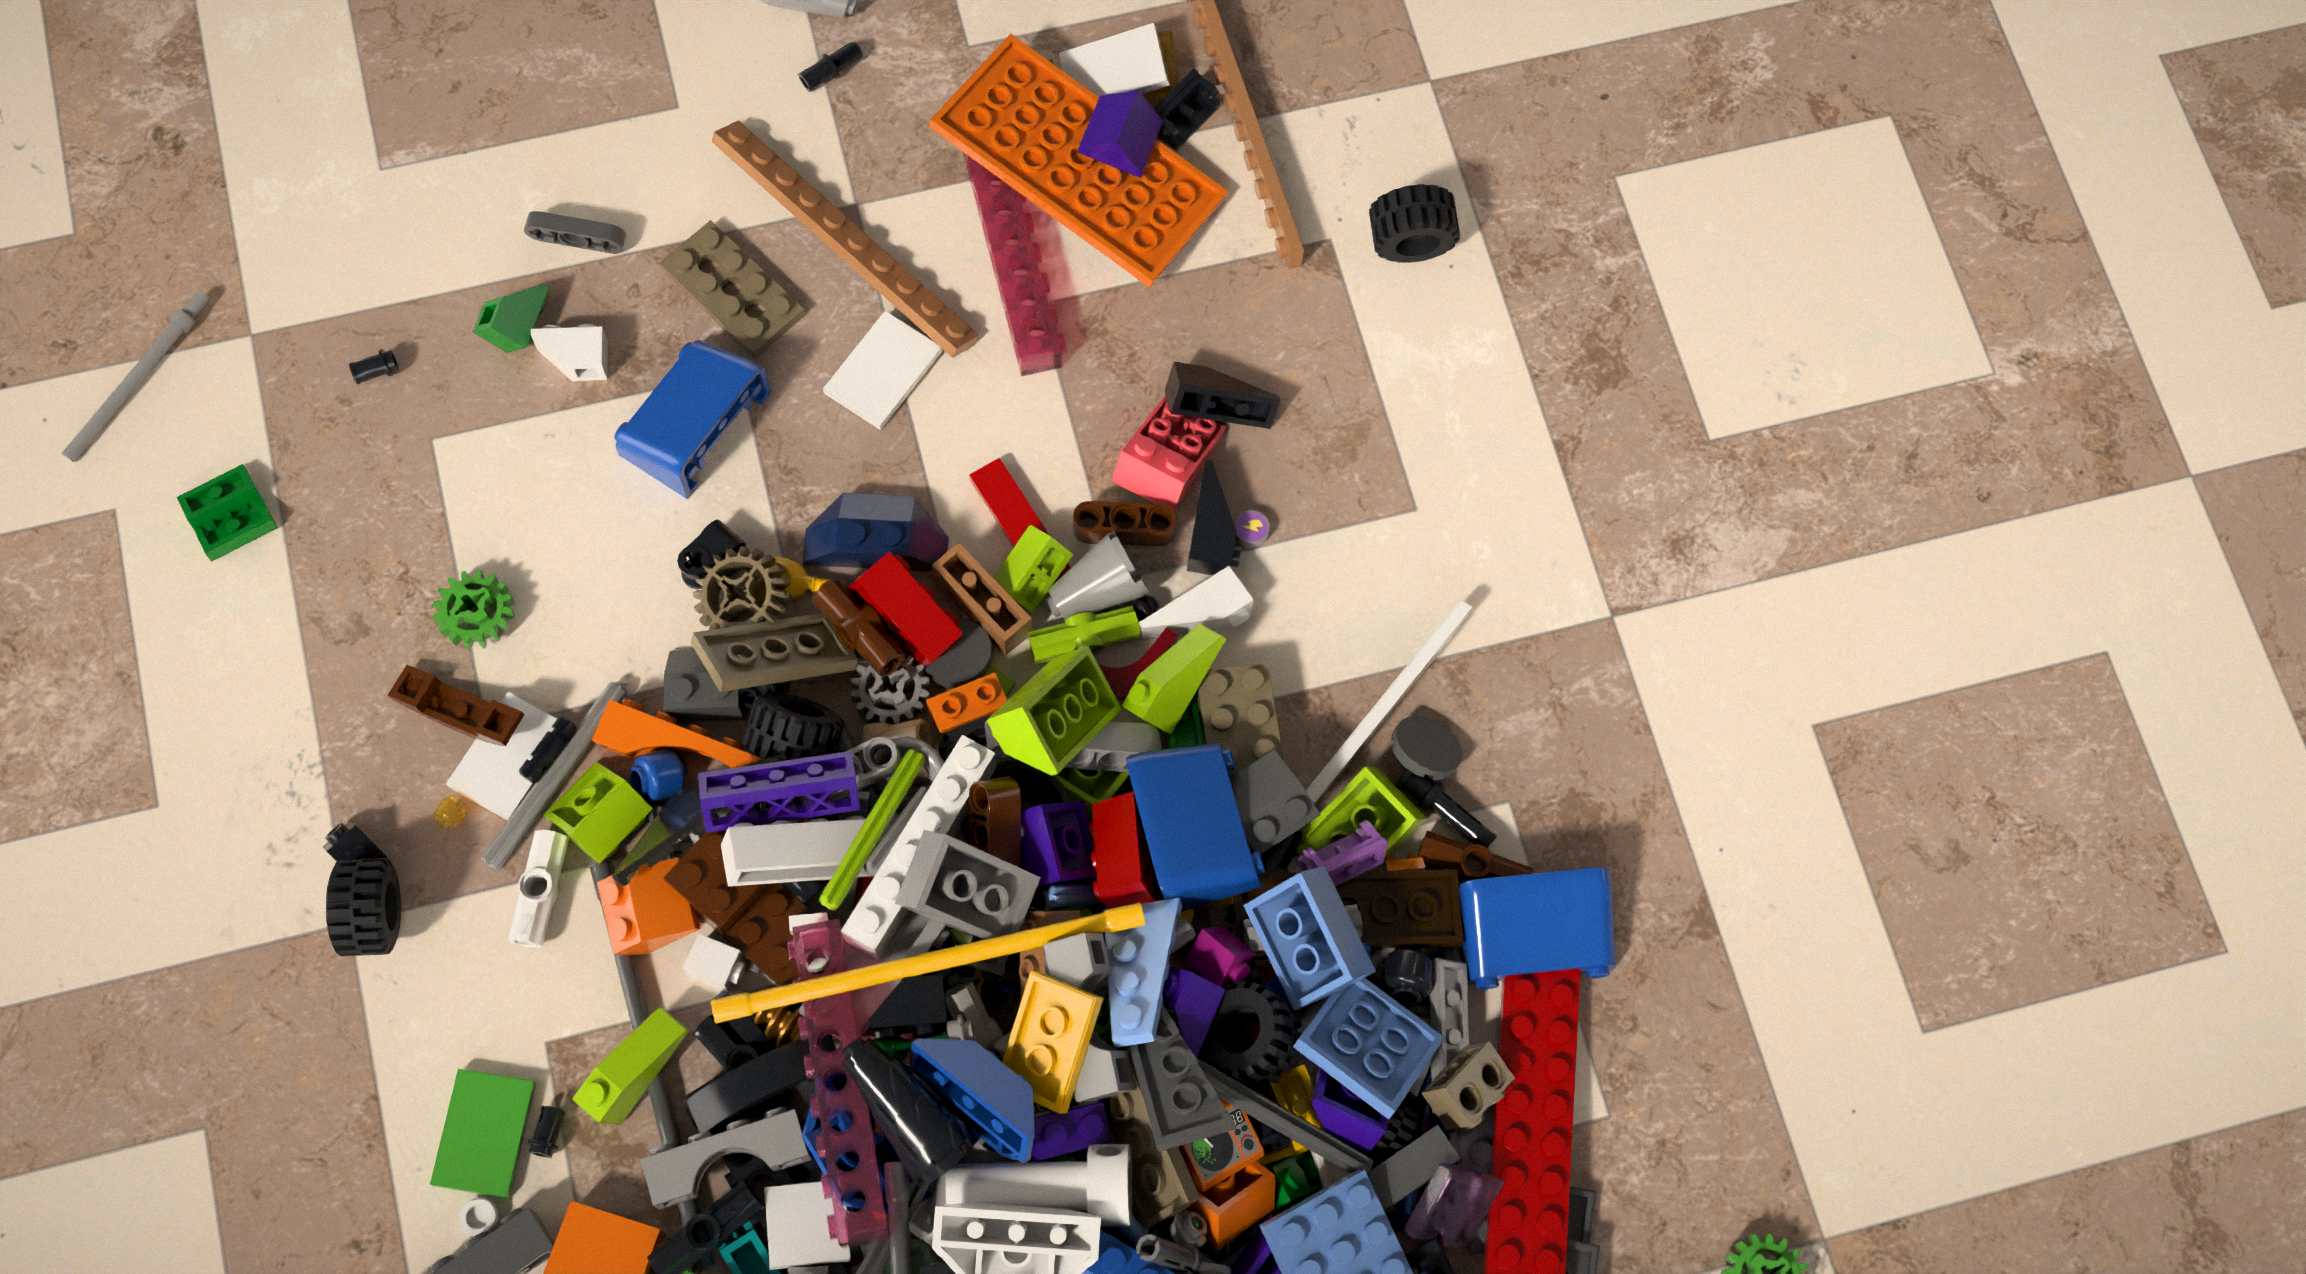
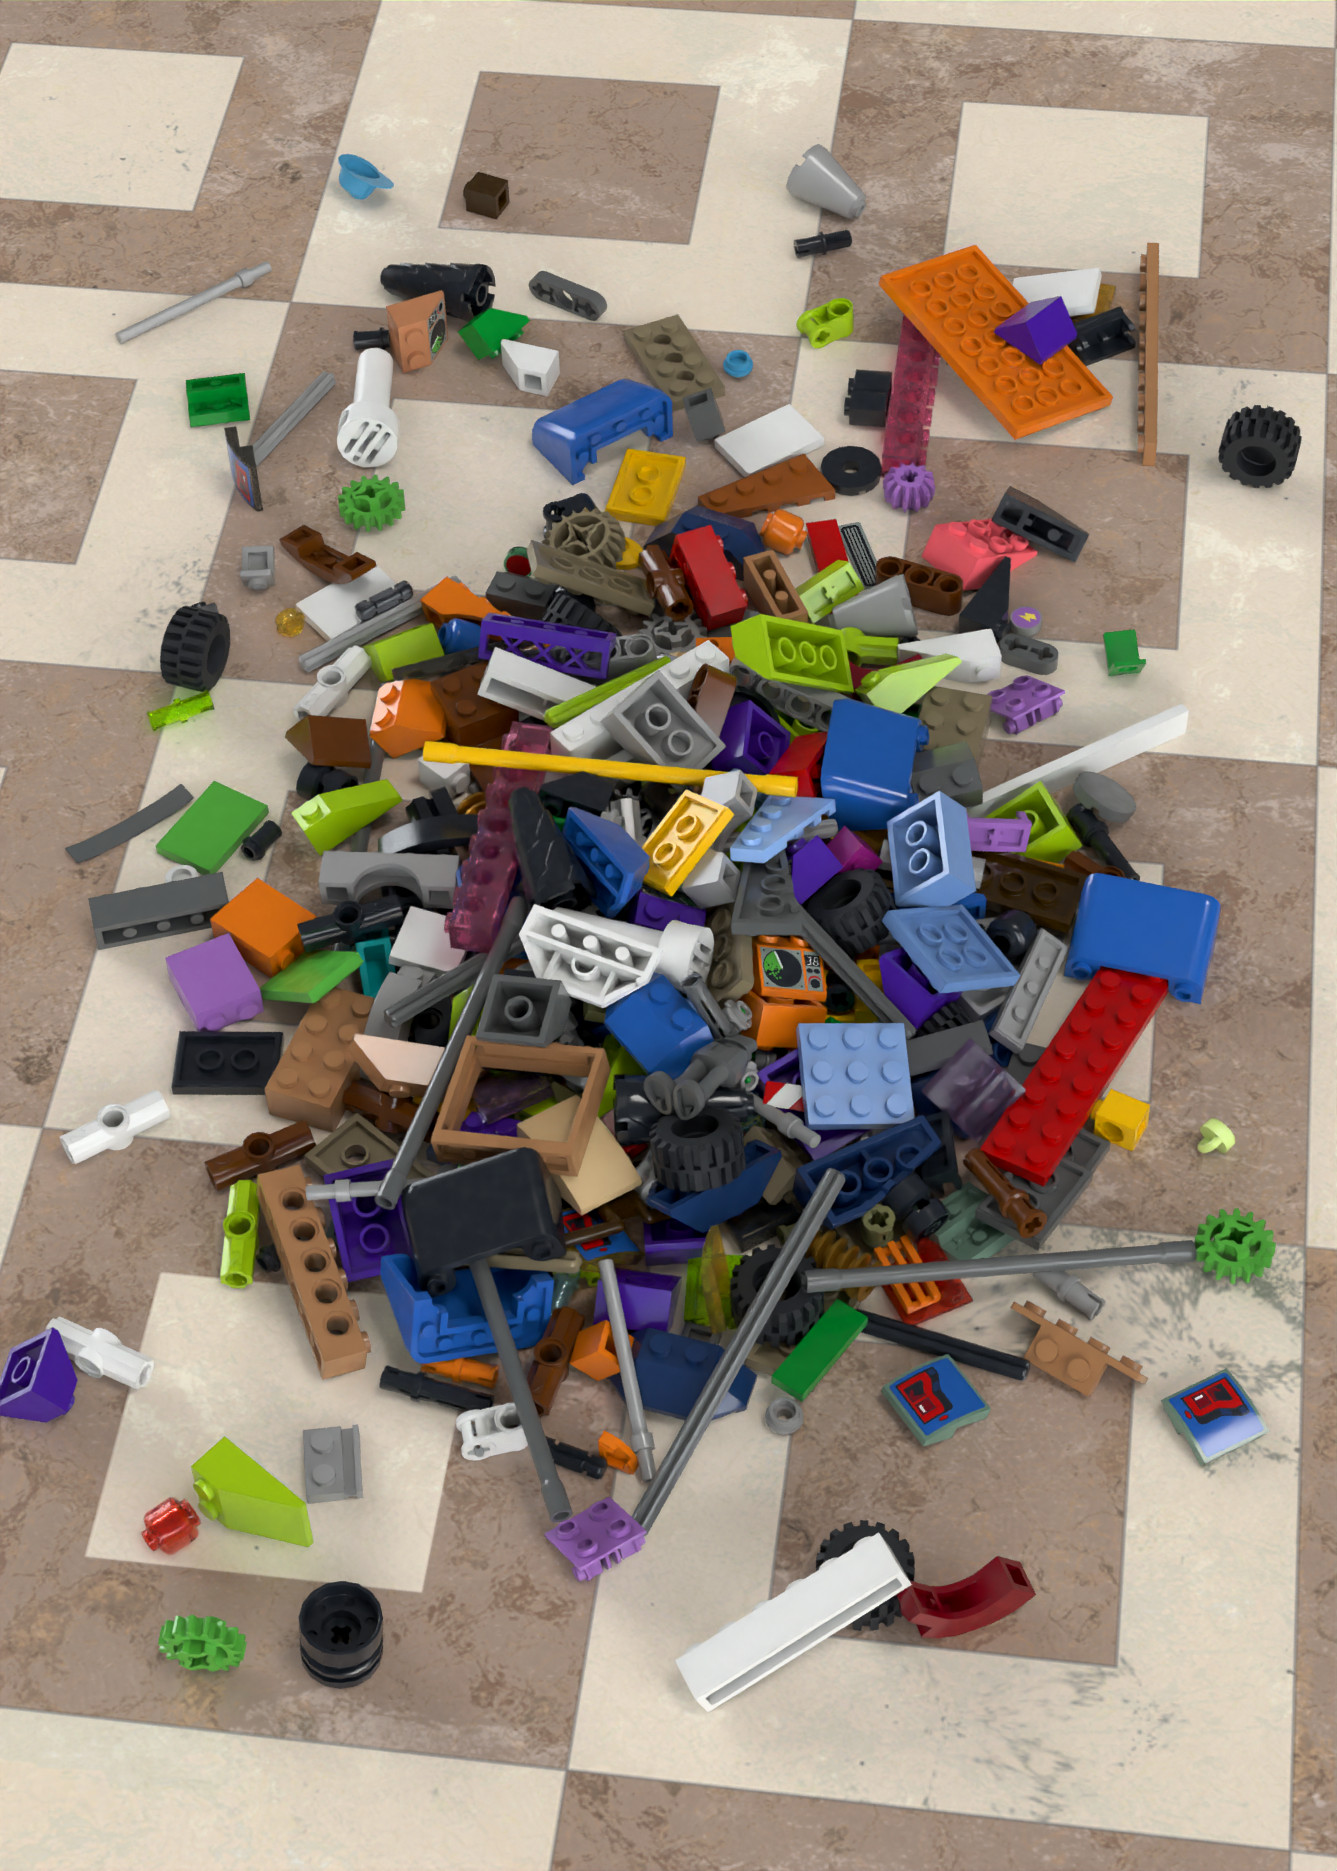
camera: 30 degrees right, 20 degrees down
(263, 131) = (360, 176): none -> dark azure piece
(307, 618) = (243, 469): none -> slope
(323, 517) = (292, 416): none -> light grey axle
(376, 983) = (180, 710): none -> clear neon green pin
(380, 747) = (258, 566): none -> light grey bracket
(385, 1162) = (132, 826): none -> dark grey sticker
(420, 112) = (486, 195): none -> dark brown brick
(426, 348) = (417, 330): none -> nougat slope
(428, 513) = (368, 426): none -> white piece
(435, 270) = (463, 285): none -> black cone
(577, 984) = (332, 741): none -> reddish brown slope
(591, 1034) = (322, 779): none -> black wheel
(676, 636) = (517, 561): none -> red tile
(771, 478) = (646, 487): none -> yellow tile
(801, 364) = (704, 415): none -> dark grey brick
(805, 270) = (738, 363): none -> dark azure plate
(845, 239) = (781, 352): medium nougat plate -> none
(879, 188) = (829, 322): none -> lime piece
(916, 430) = (767, 490): none -> dark orange wing
(951, 497) = (783, 532): none -> orange head
(971, 276) = (869, 398): none -> black brick
(987, 362) = (856, 458): none -> black tile
(1040, 492) = (859, 553): none -> sticker
(1061, 377) = (909, 487): none -> medium lavender gear
(1272, 565) = (1028, 654): none -> dark grey beam
(1289, 641) = (1025, 703): none -> medium lavender hinge
(1371, 545) = (1122, 653): none -> green bracket
(1468, 1086) = (1026, 1015): dark tan brick -> none
(1598, 1161) = (1120, 1119): none -> yellow brick
(1697, 1142) = (1215, 1136): none -> yellowish green tile

